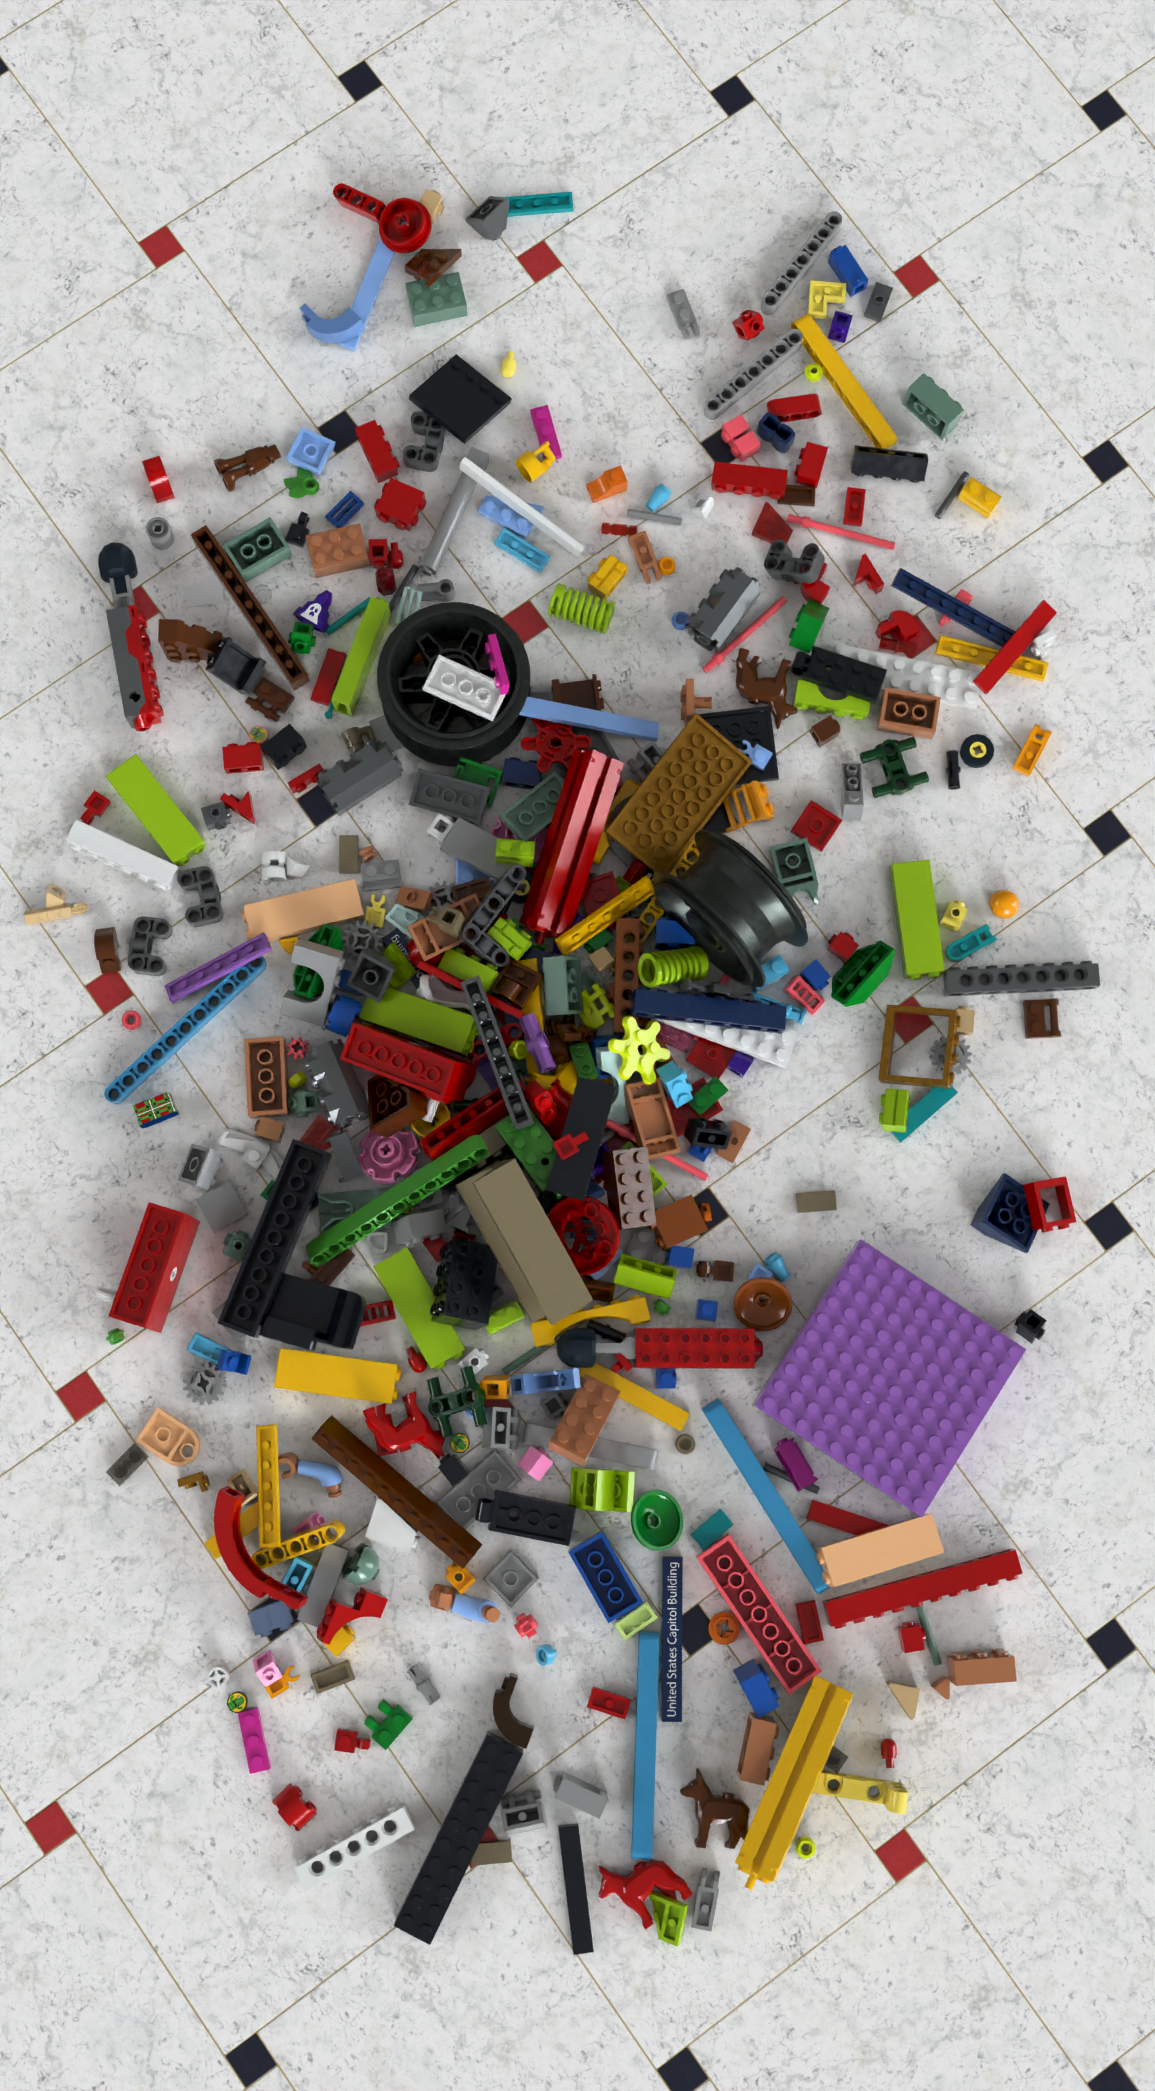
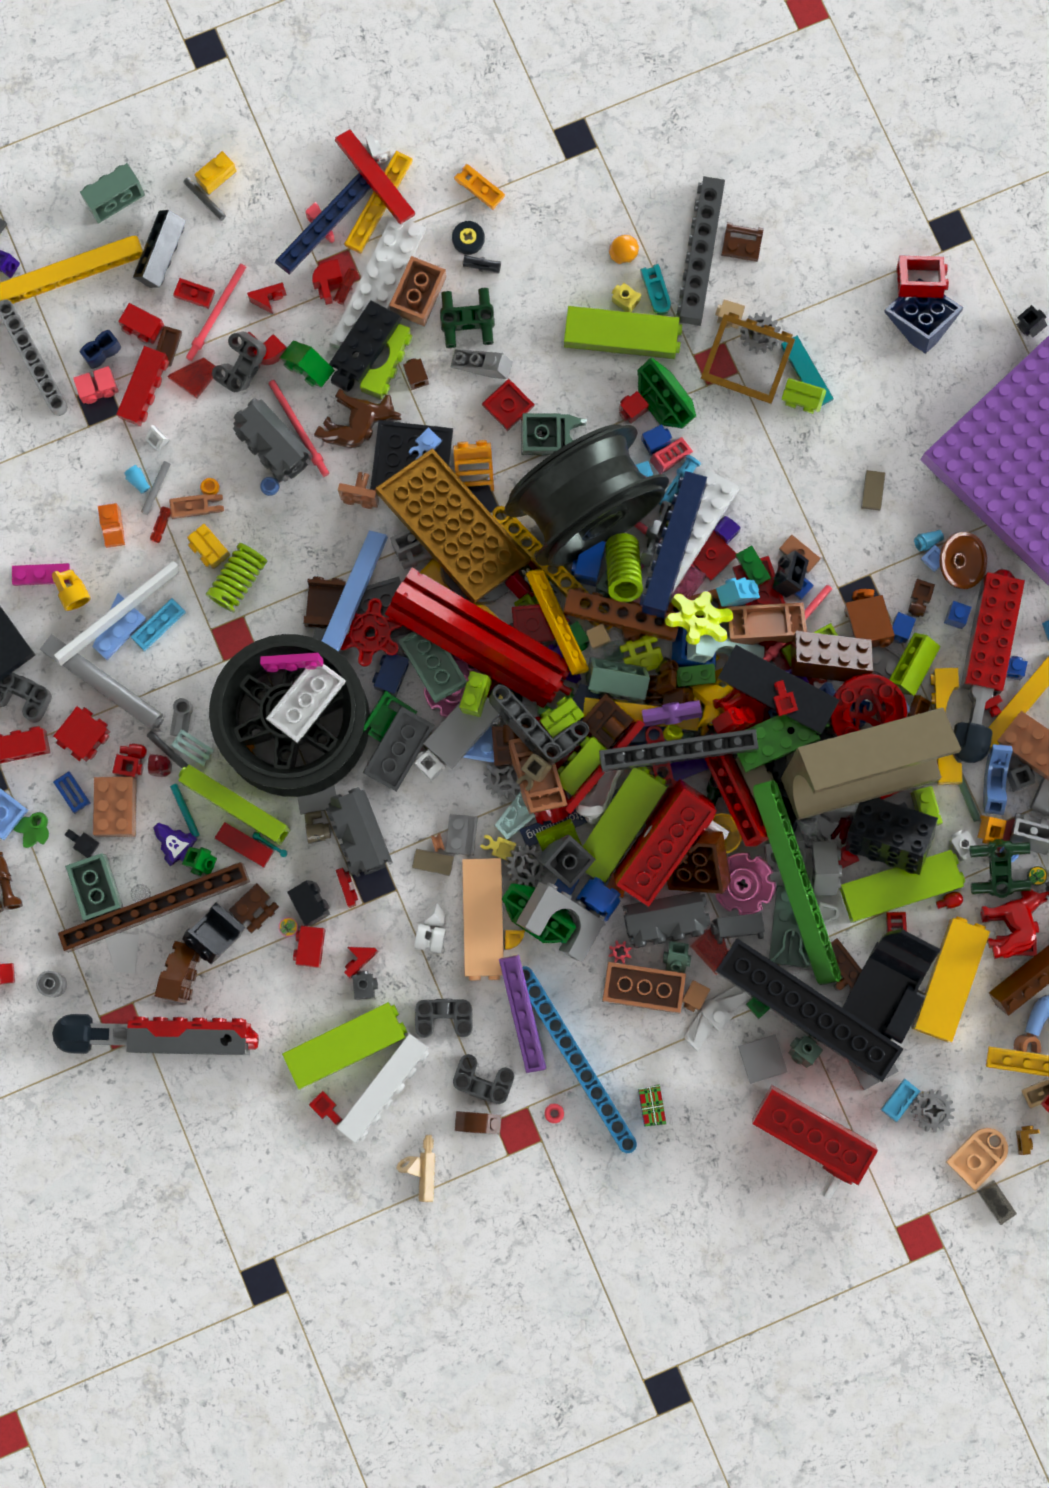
camera: 70 degrees left, 0 degrees up
(115, 1336) = (869, 1190): bright green plate -> none
(201, 1167) = (719, 1072): light grey brick -> none
(234, 1361) = (917, 1076): blue bracket -> none
(297, 1080) = (651, 959): neon yellow tile -> none
(414, 898) = (494, 805): nougat plate -> none
(606, 1331) = (959, 713): black pin -> none
(661, 1307) = (945, 657): bright green plate -> none
(795, 407) = (77, 325): red beam -> none
(813, 377) = (46, 304): neon yellow plate -> none

